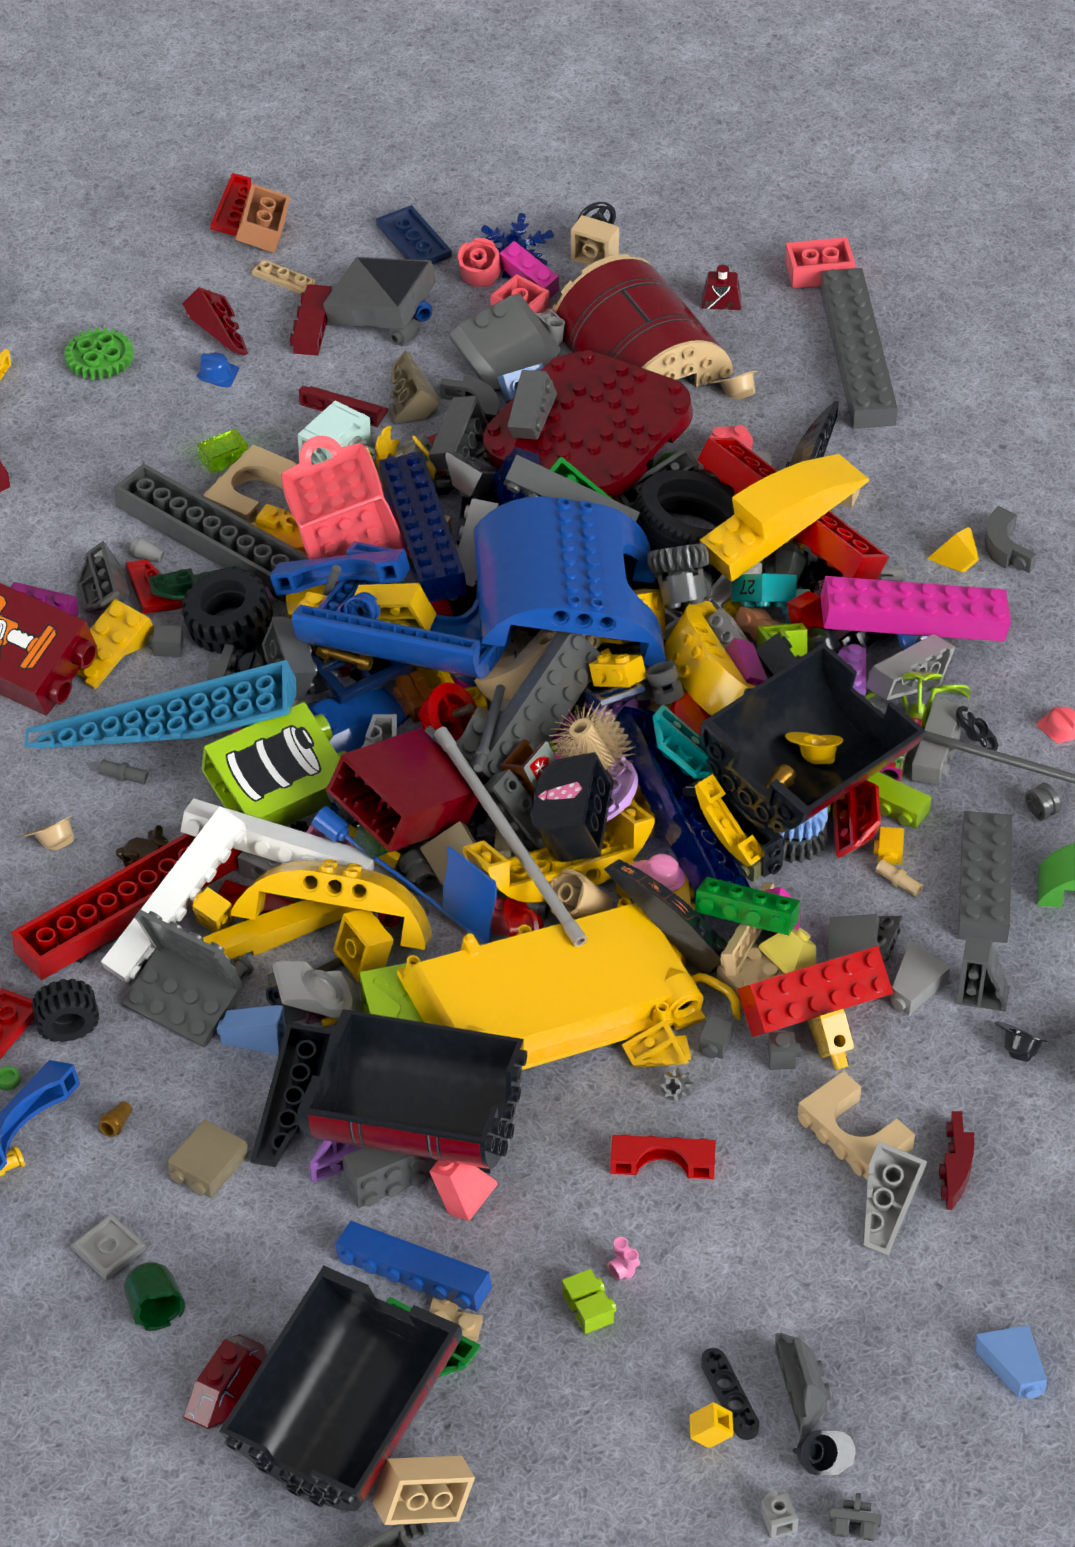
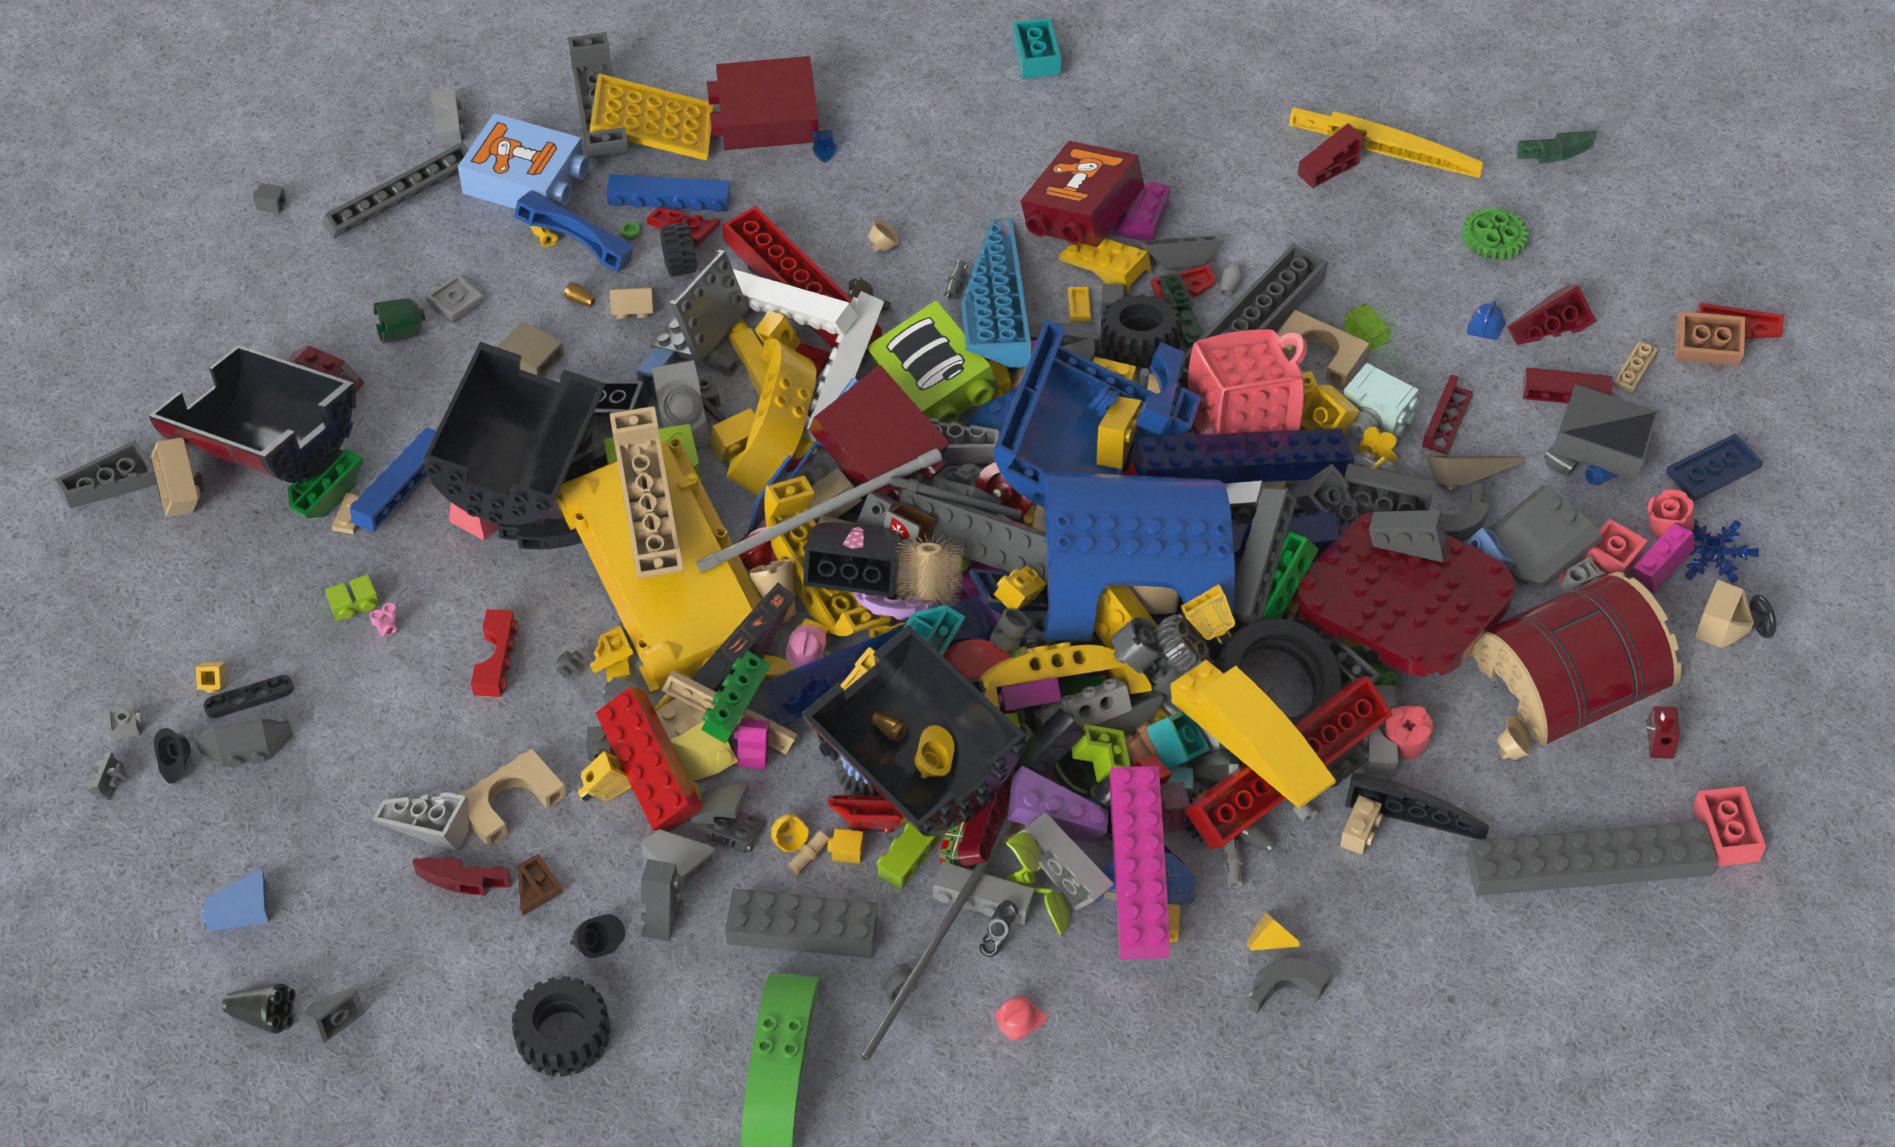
camera: 90 degrees right, 5 degrees up
(130, 1062) = (632, 301): none -> tan slope
(166, 672) = (1079, 304): none -> yellow tile
(526, 966) = (646, 493): none -> tan slope
(648, 533) = (1210, 614): none -> yellow torso
(879, 891) = (787, 826): none -> yellow hair
(959, 1095) = (536, 884): none -> reddish brown wing

